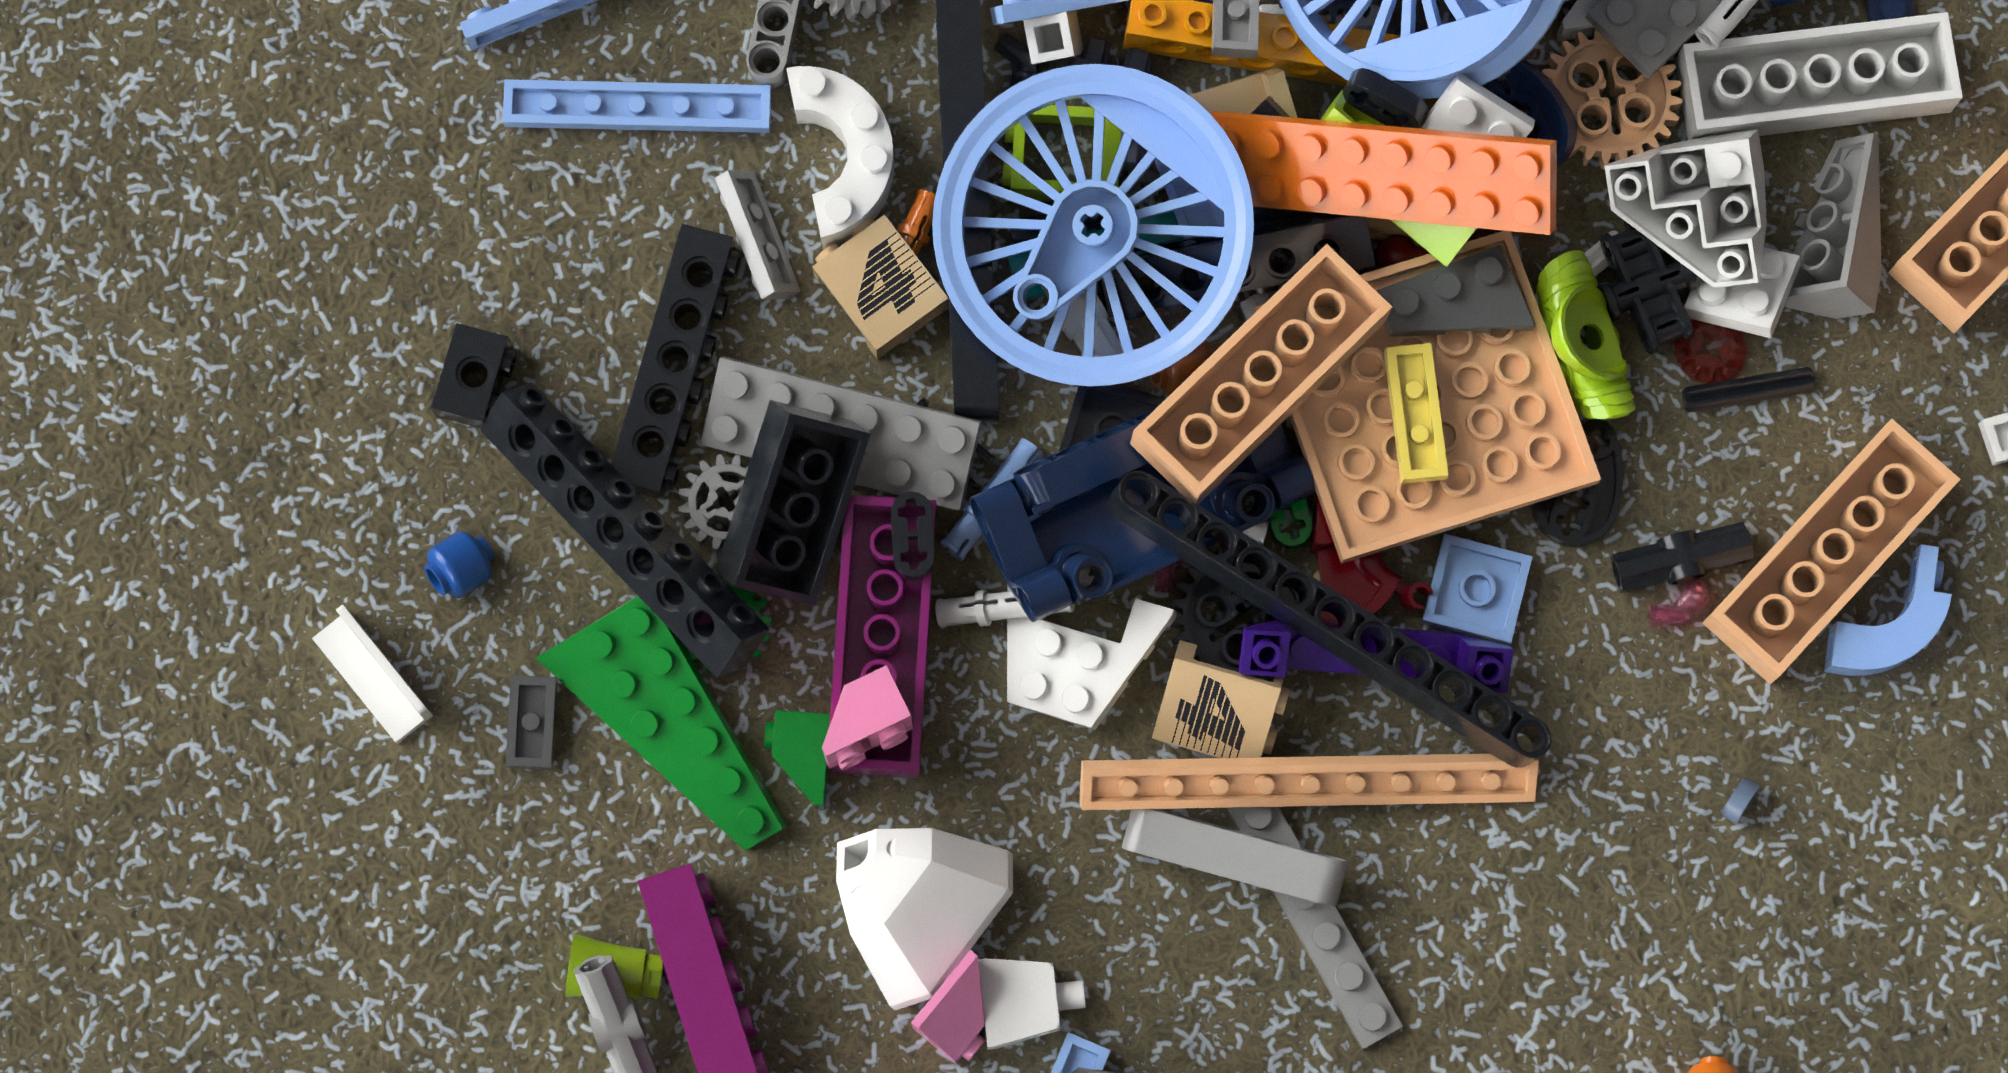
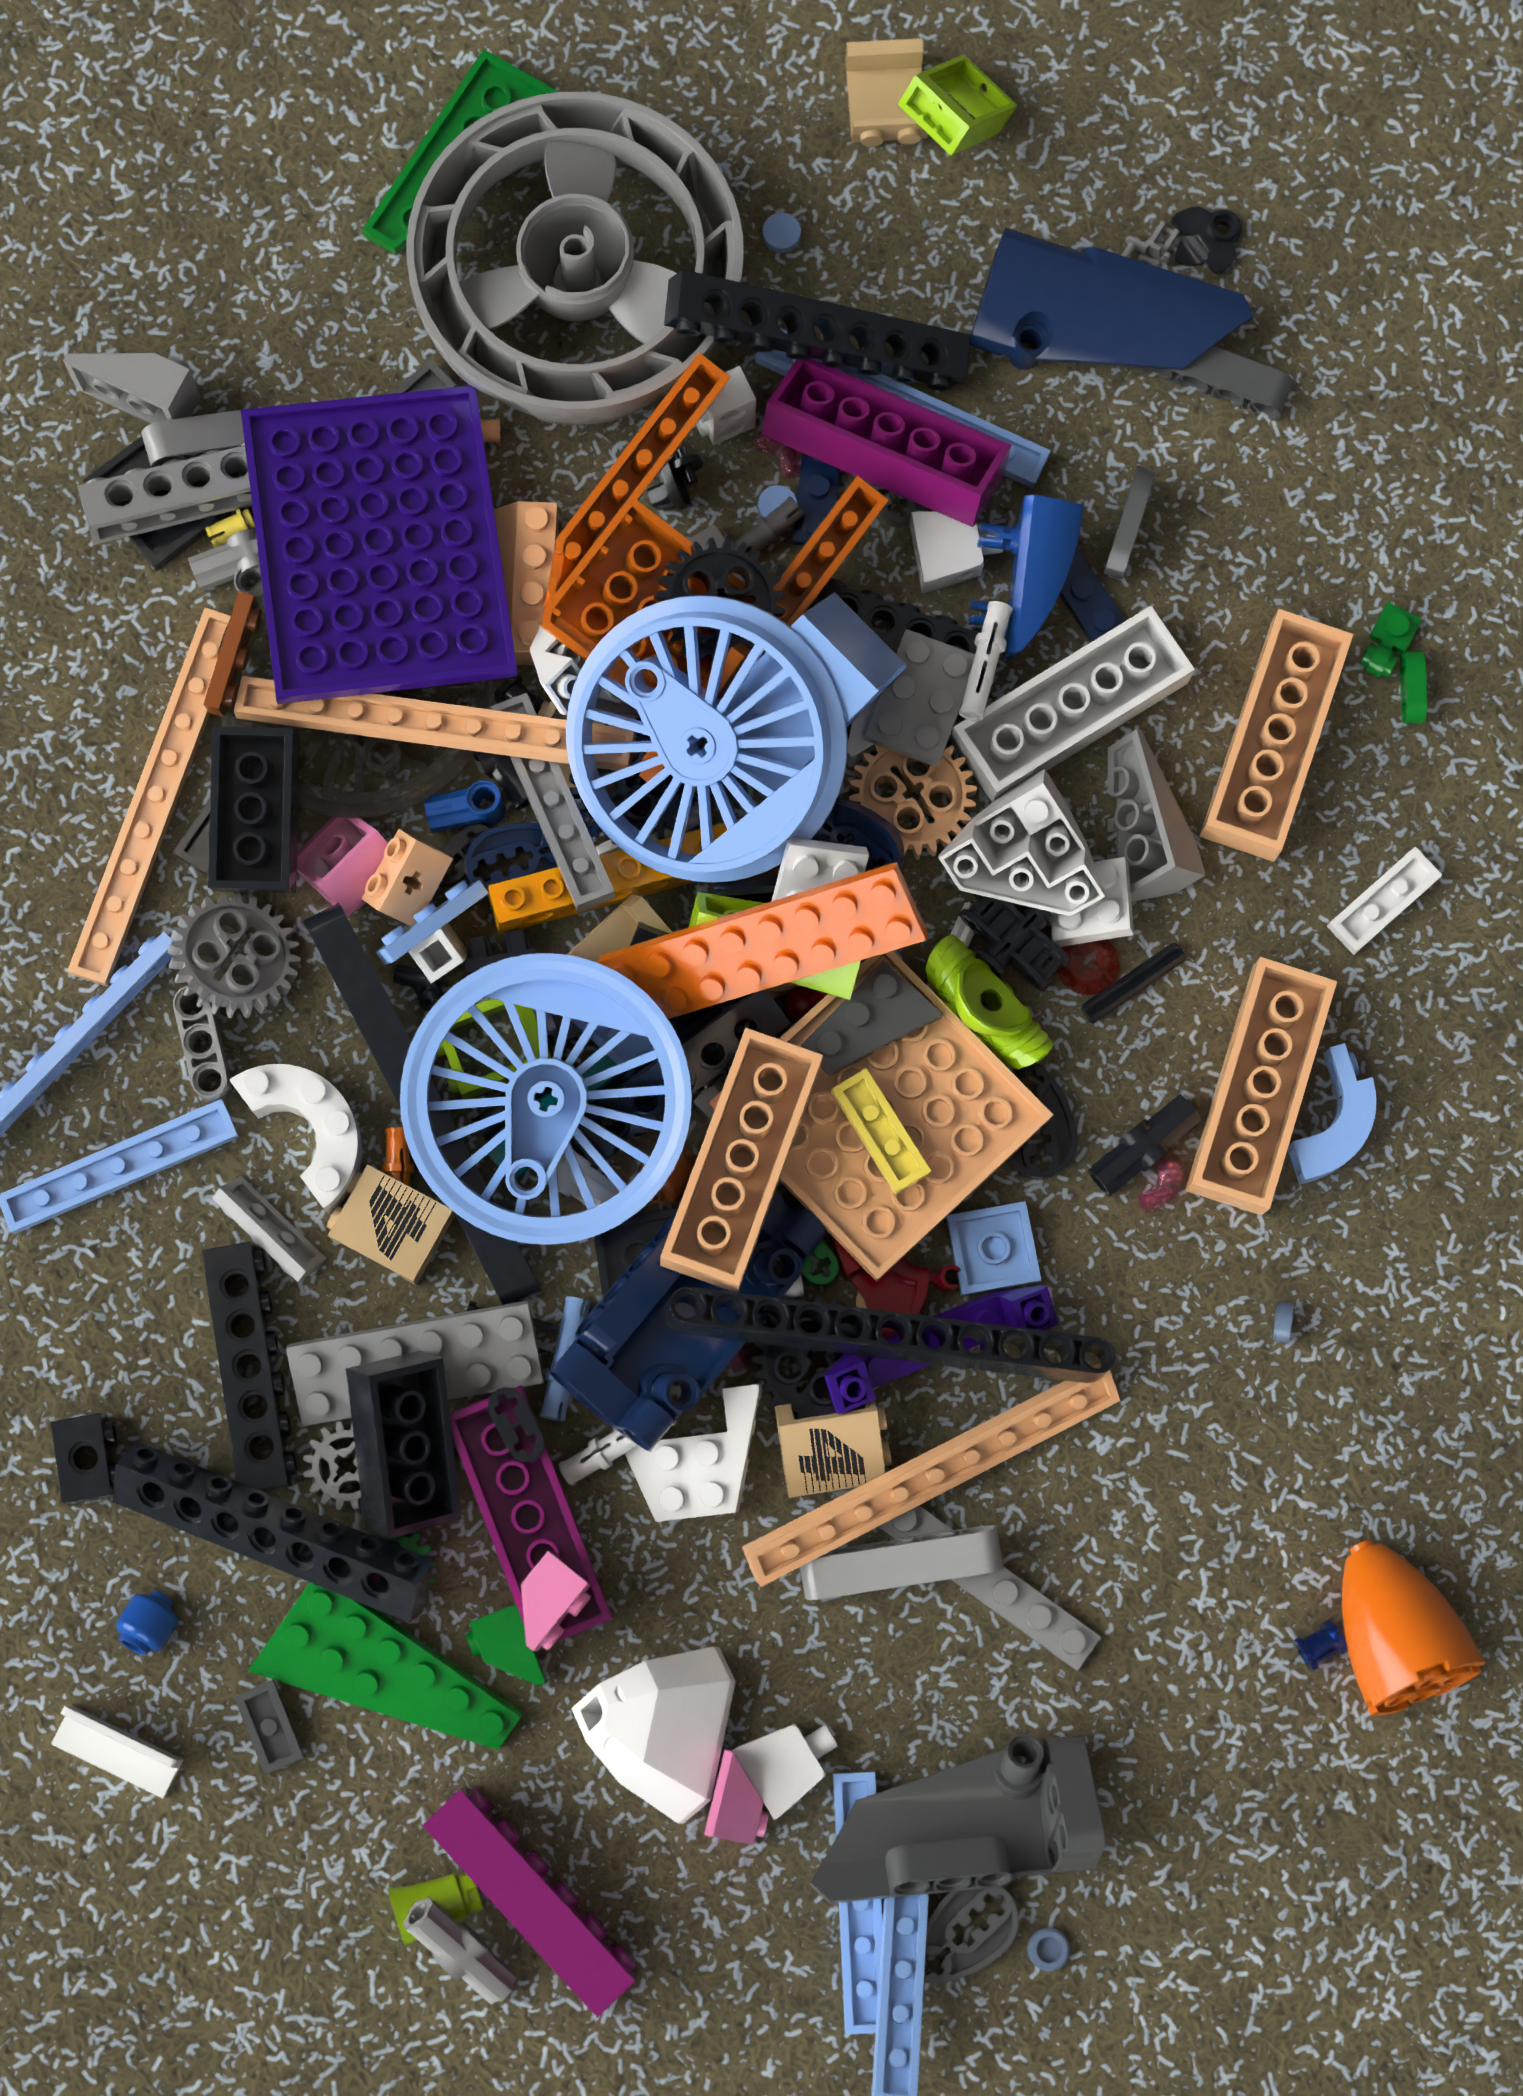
camera: 30 degrees left, 0 degrees up
(1384, 100) = (737, 886): black beam -> none

